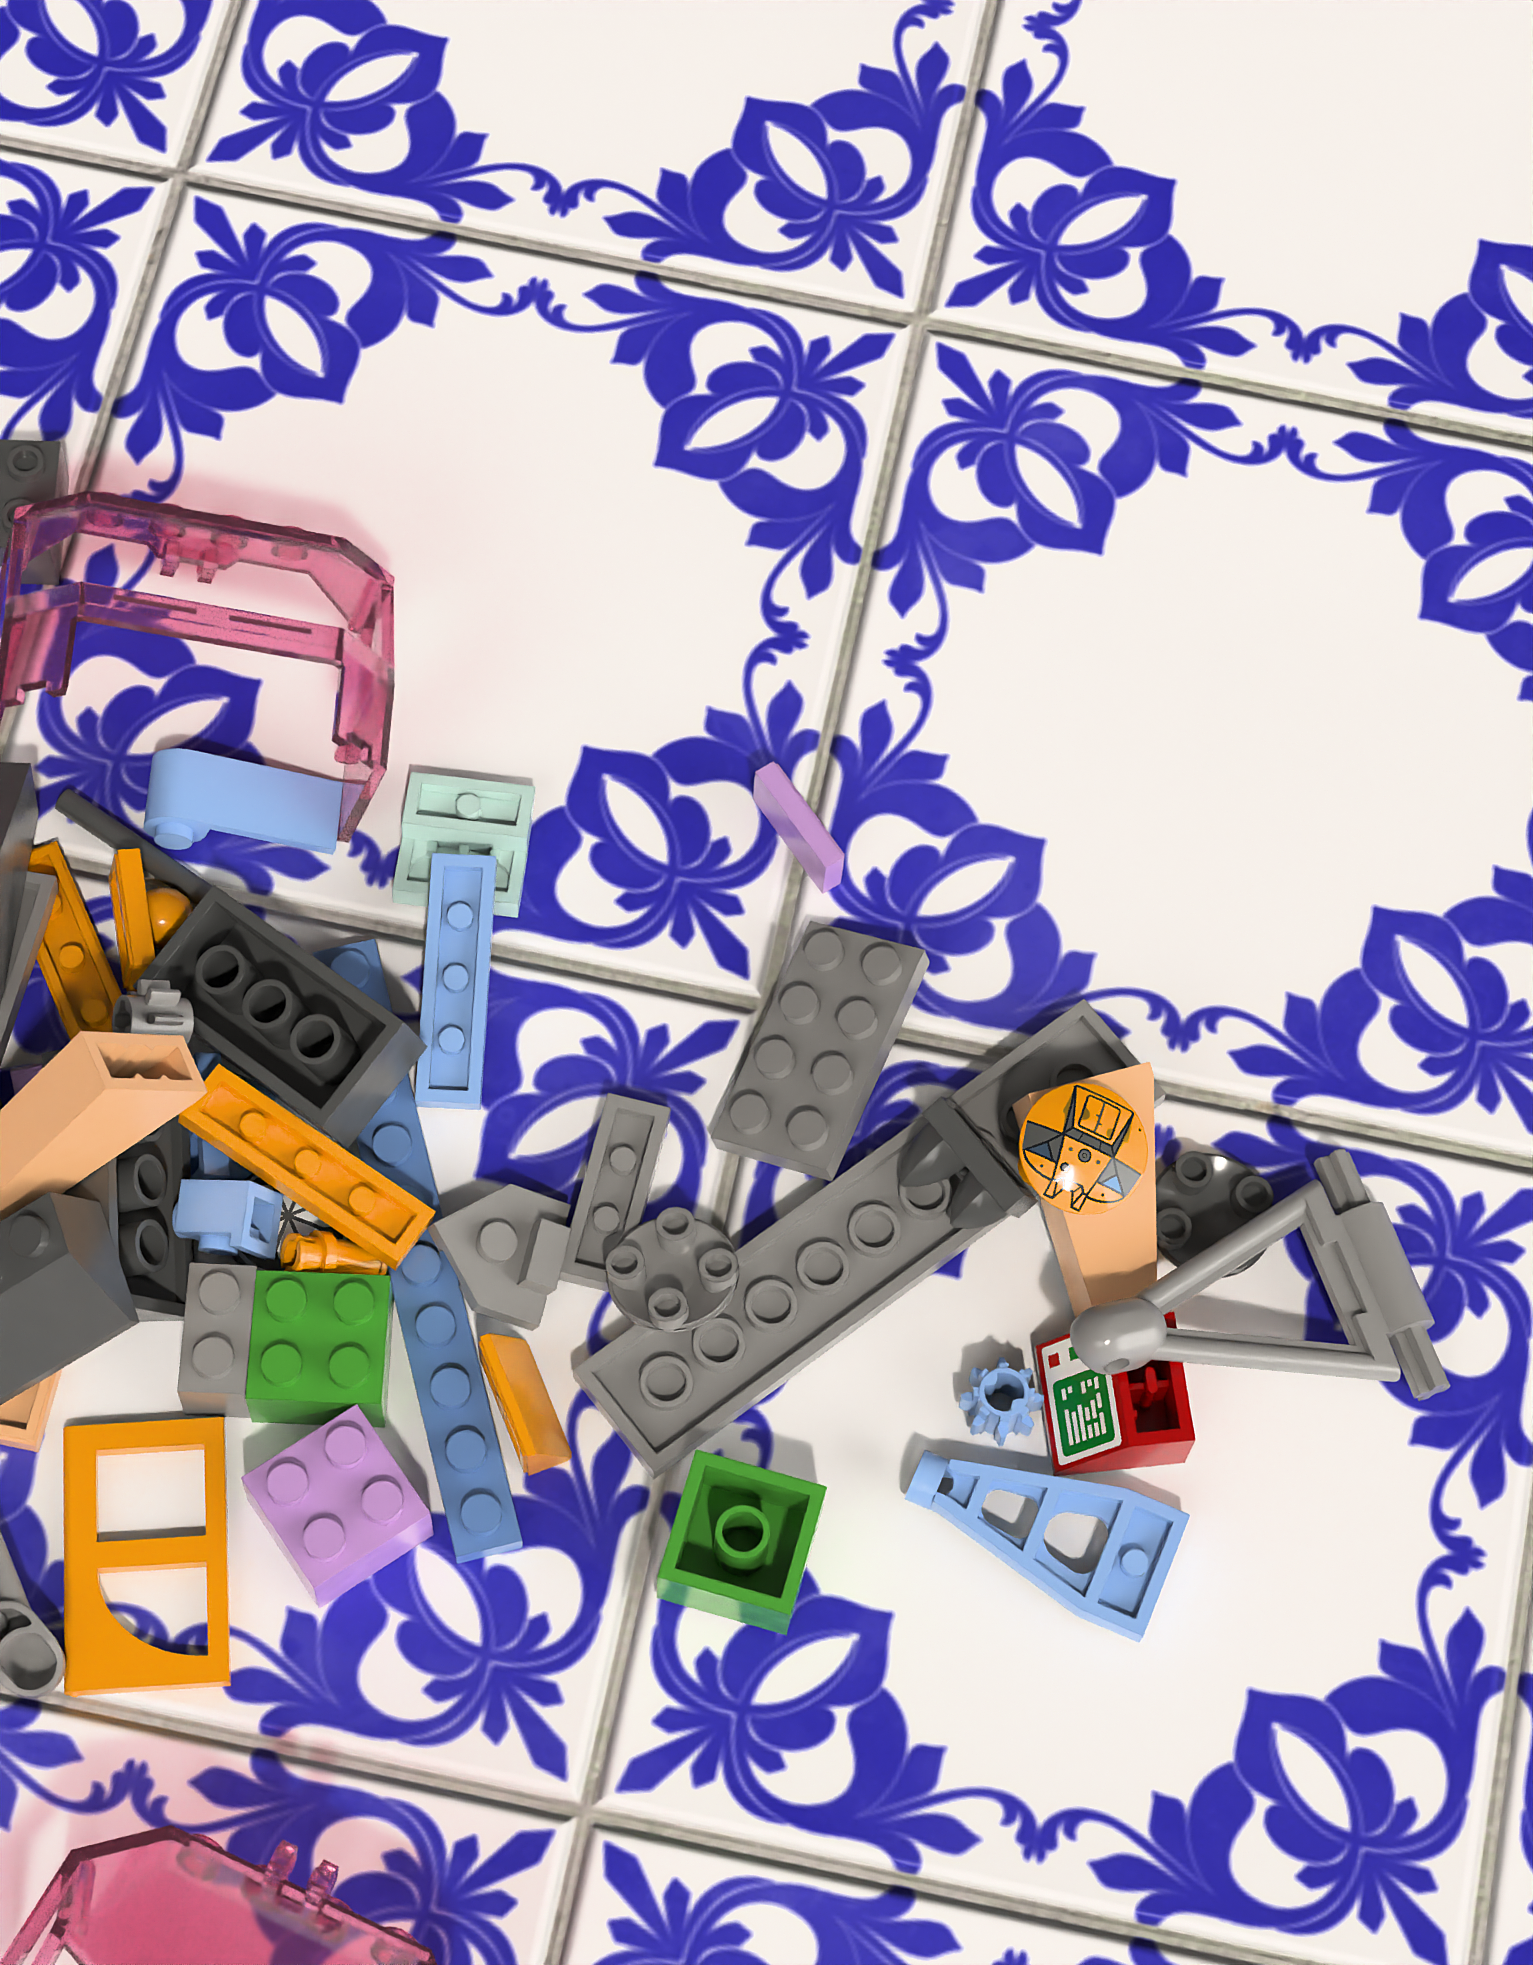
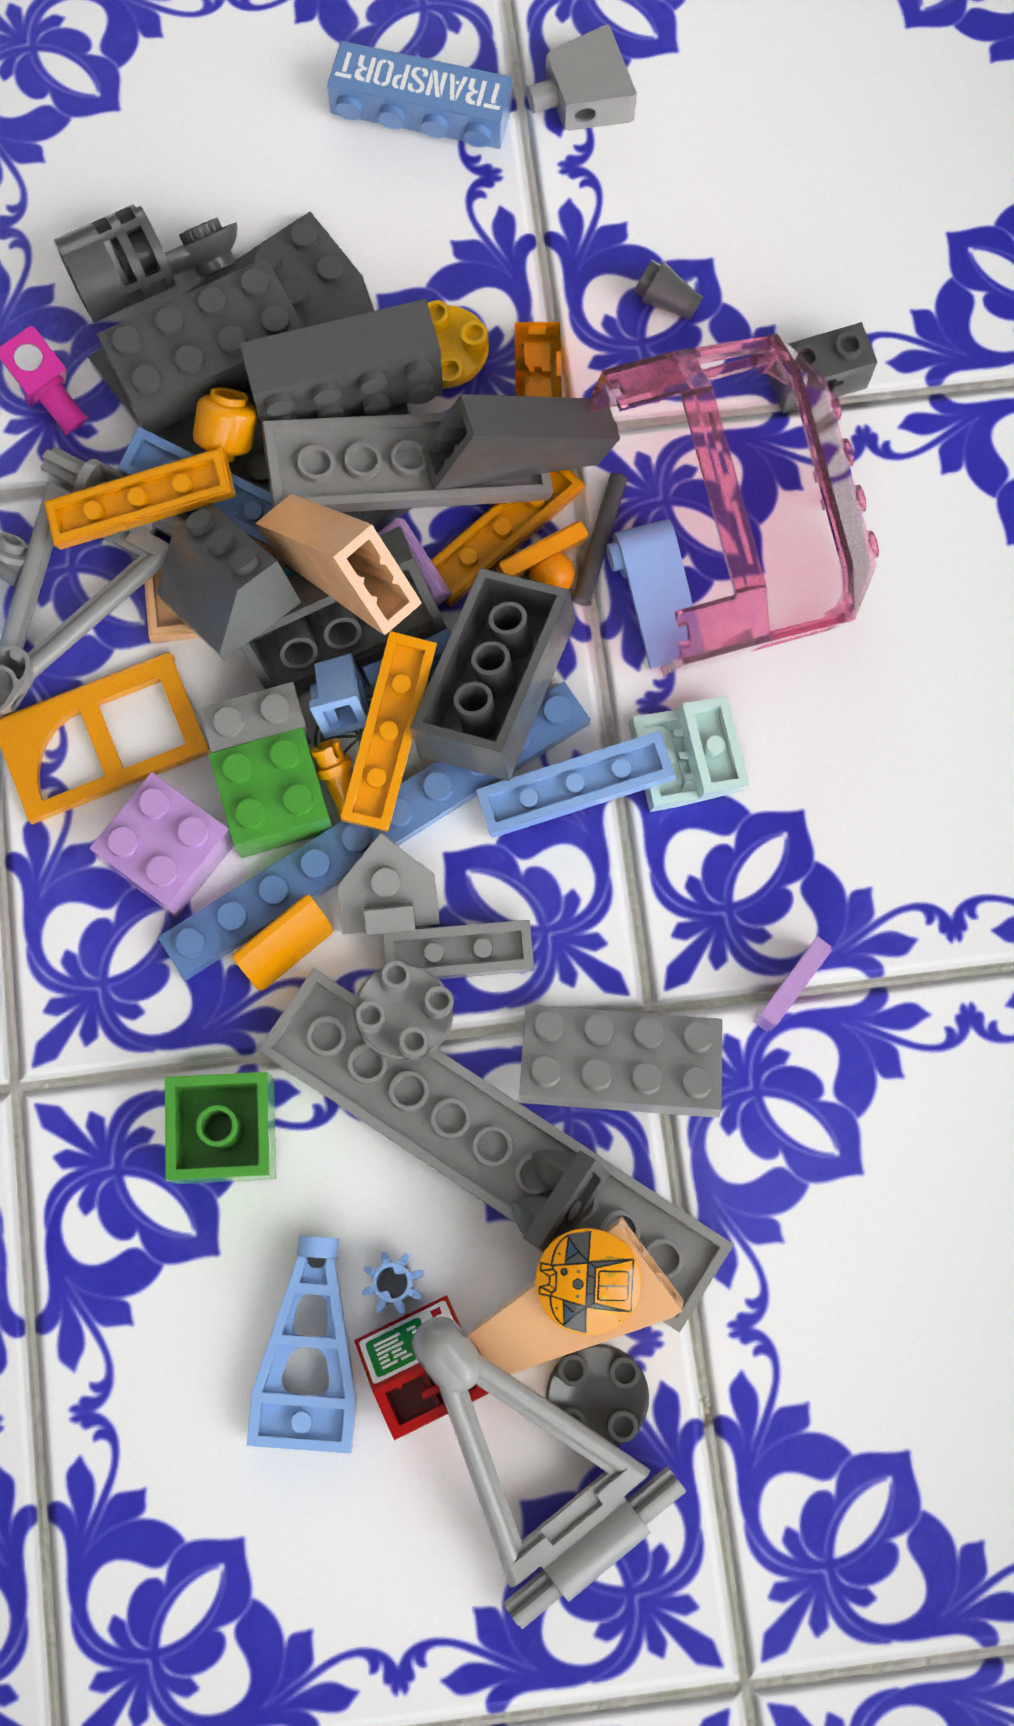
camera: 75 degrees right, 10 degrees up
(153, 1011) = (447, 586): light grey gear -> none

